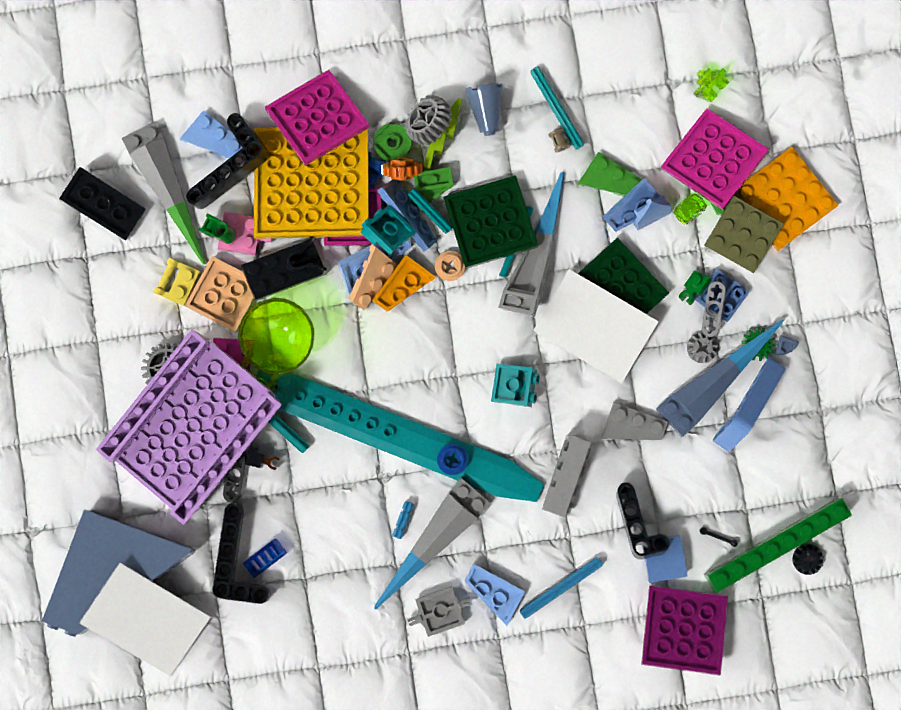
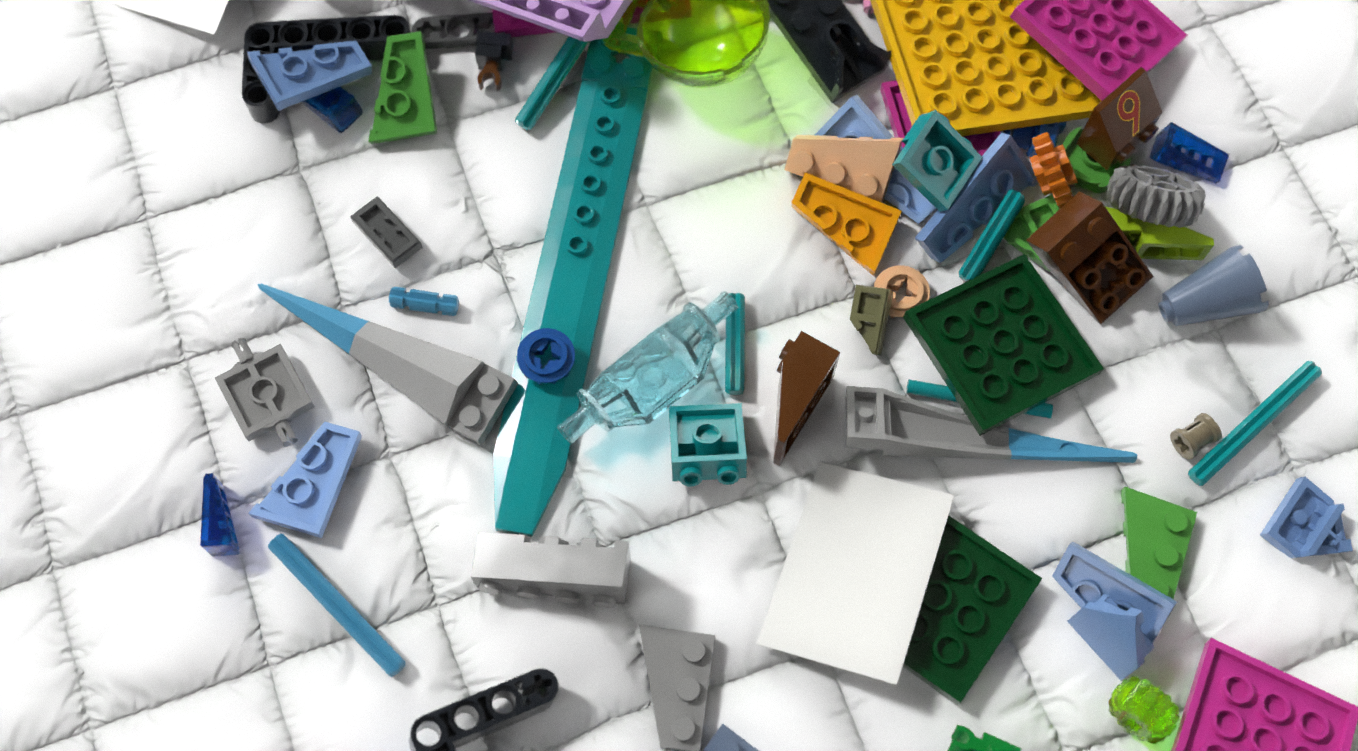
camera: 80 degrees right, 15 degrees down
(253, 564) = (308, 73): none -> medium blue wing
(276, 512) = (405, 92): none -> bright green wing
(357, 534) = (386, 232): none -> dark grey plate
(383, 125) = (1122, 121): none -> reddish brown slope
(393, 101) = (1173, 157): none -> clear blue slope
(455, 165) = (1090, 256): none -> reddish brown slope
(460, 285) = (871, 315): none -> olive tile
(461, 359) = (735, 348): none -> teal axle
(471, 406) = (652, 371): none -> clear light blue plate
(498, 332) = (805, 375): none -> reddish brown slope
(513, 642) = (217, 527): none -> clear blue slope
(613, 100) = (1307, 523): none -> medium blue slope

